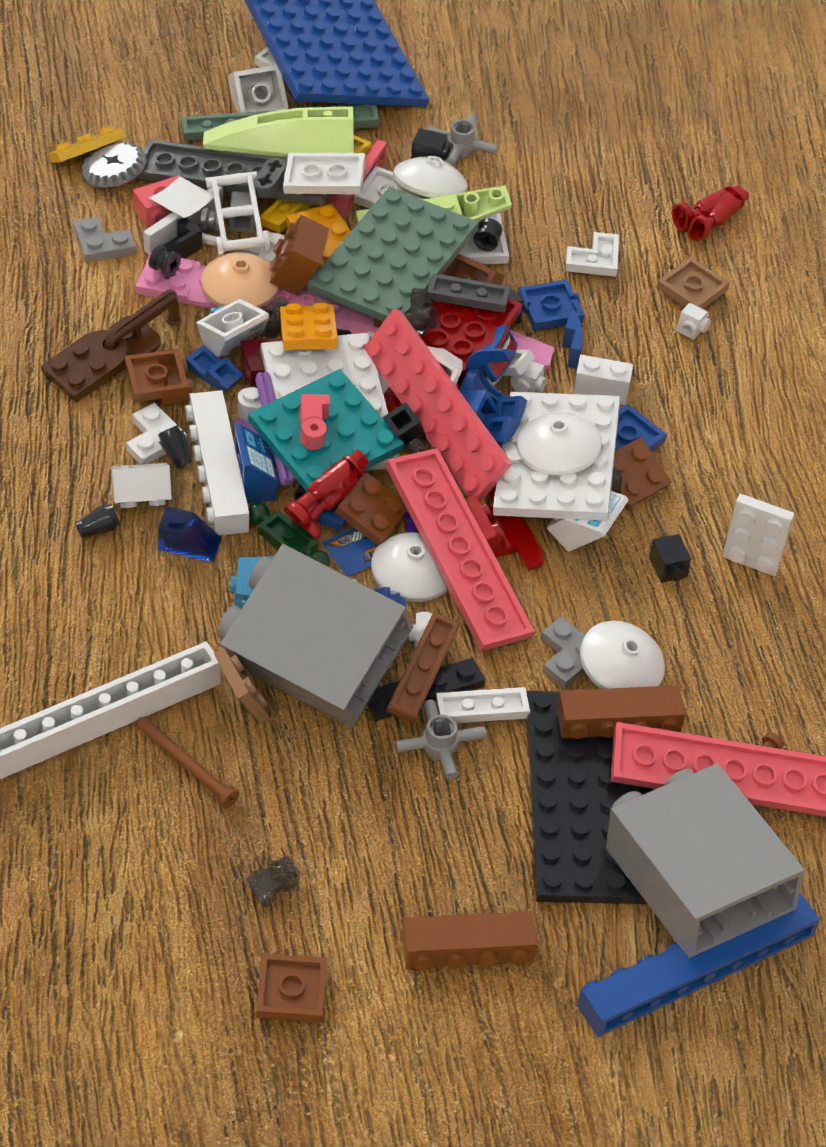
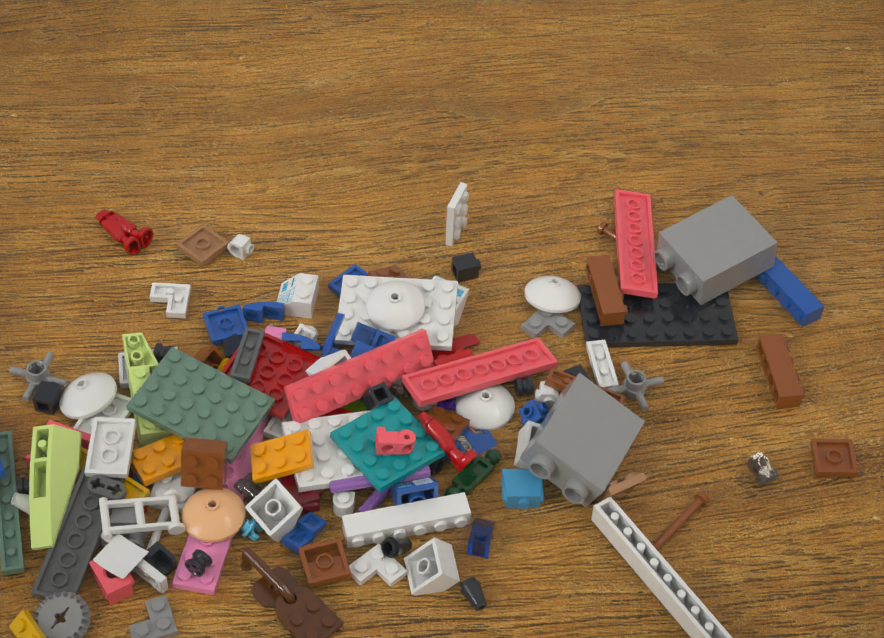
camera: 90 degrees left, 0 degrees up
(422, 313) = (274, 383): clear smoke plate -> none
(442, 602) = (524, 386): none -> black wheel

